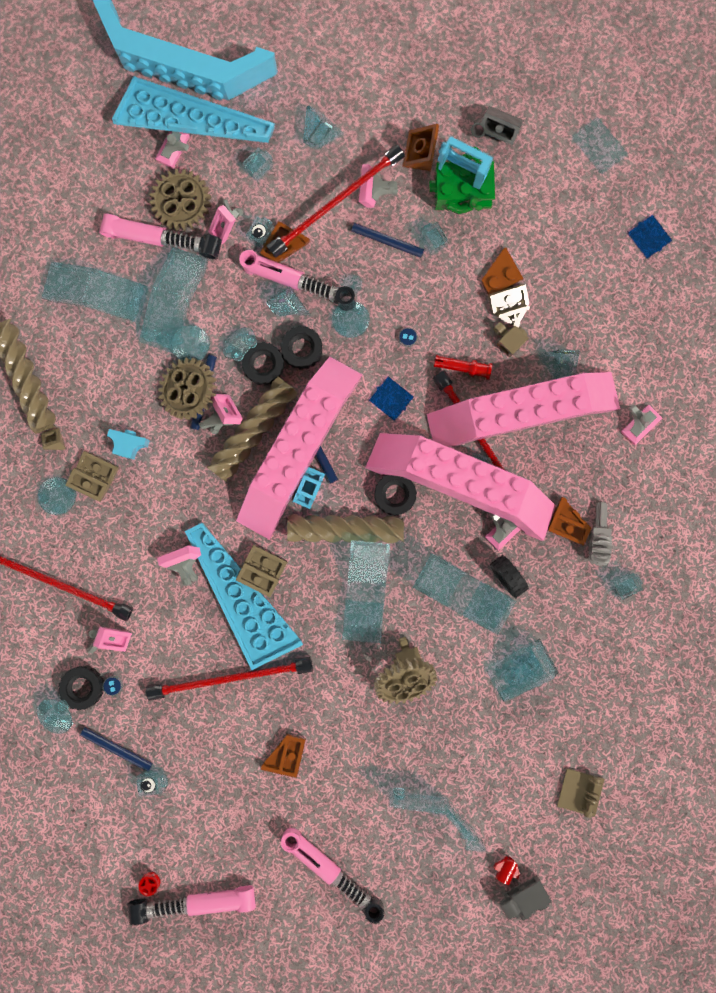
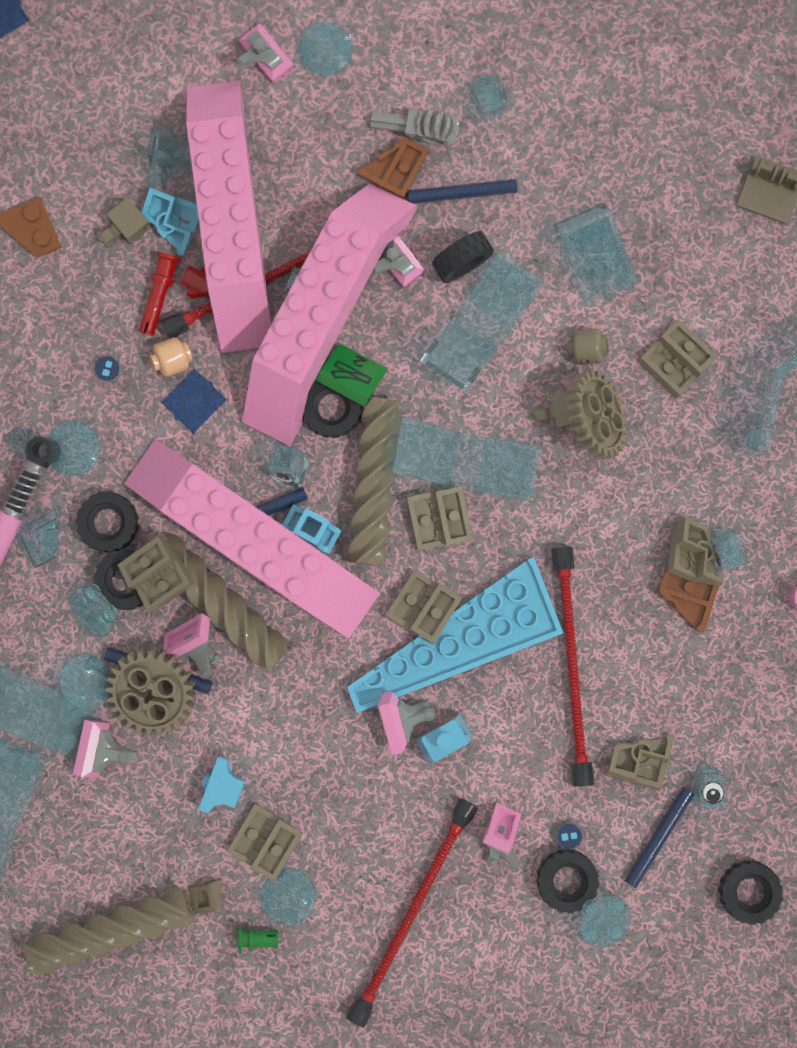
camera: 85 degrees left, 0 degrees up
(26, 476) = (255, 939): none -> green pin
(82, 832) = (772, 892): none -> black tyre
(145, 357) = (98, 750): none -> piece
(167, 724) = (629, 761): none -> dark tan slope
(171, 593) = (444, 739): none -> medium azure torso
(267, 384) = (156, 573): none -> dark tan slope
(315, 756) = (692, 553): none -> dark tan slope
(320, 783) = (729, 549): none -> clear light blue brick
(324, 576) = (439, 518): none -> dark tan slope
(351, 467) = (288, 465): none -> clear light blue brick
(418, 506) = (351, 374): none -> green tile
(419, 379) = (171, 357): none -> light nougat head
(452, 734) = (677, 358): none -> dark tan slope
(454, 671) = (588, 346): none -> dark tan head
(473, 391) = (196, 282): none -> red piece
(510, 304) = (74, 219): slope -> none
(521, 366) = (165, 212): none -> medium azure slope
(557, 572) = (463, 191): none -> dark blue piece
(649, 466) = (326, 48): none -> clear light blue dish

